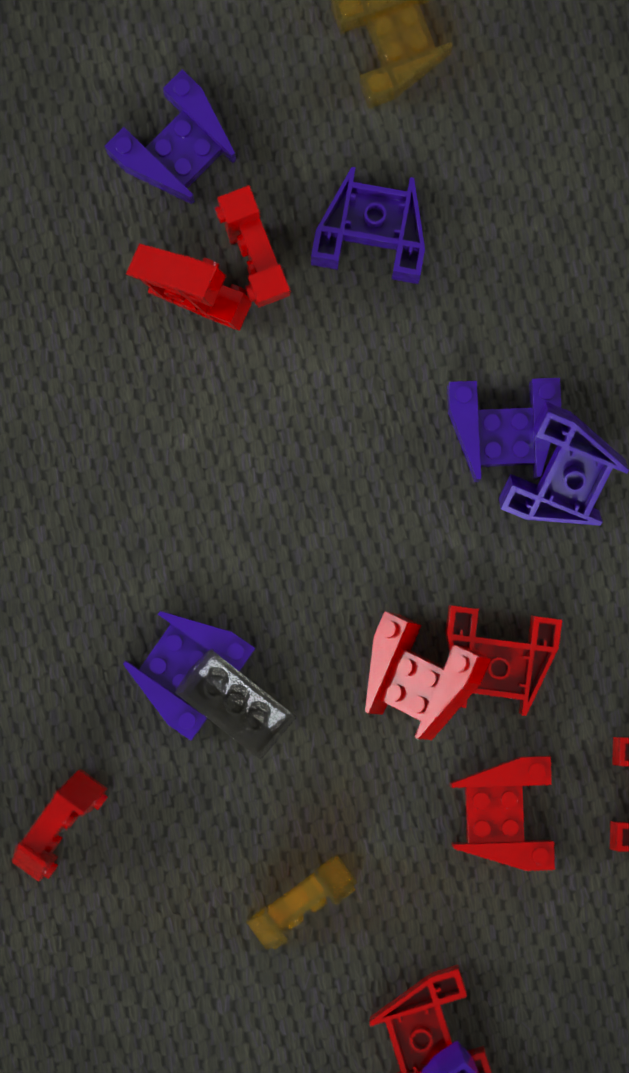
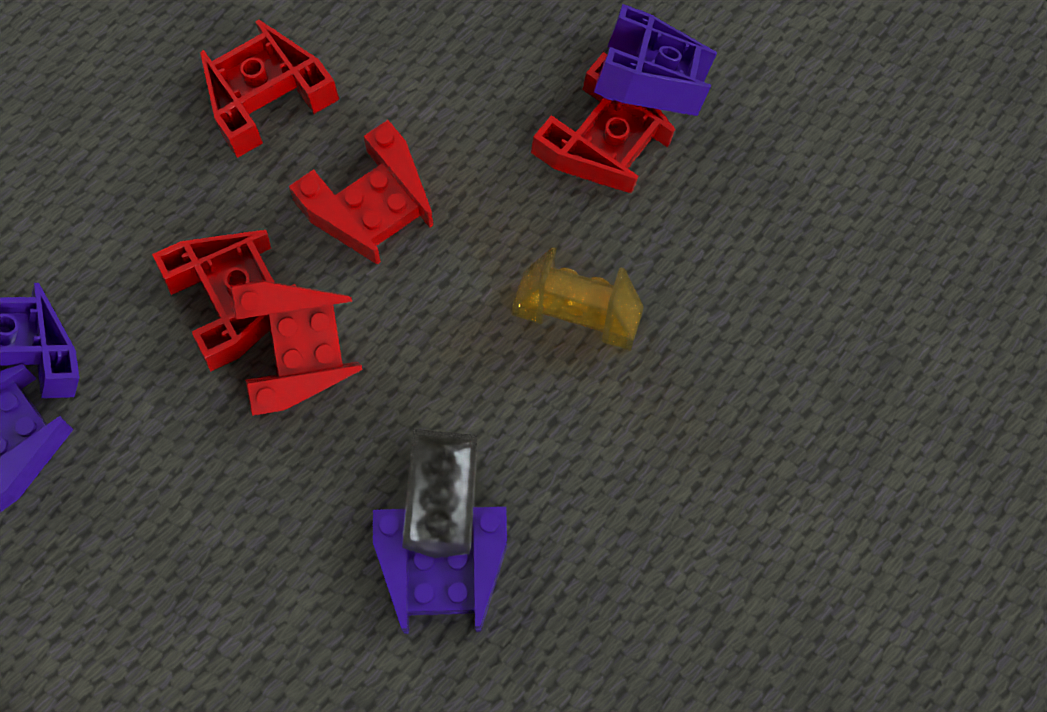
camera: 125 degrees left, 15 degrees down
(73, 799) = (641, 572): red wedge -> none

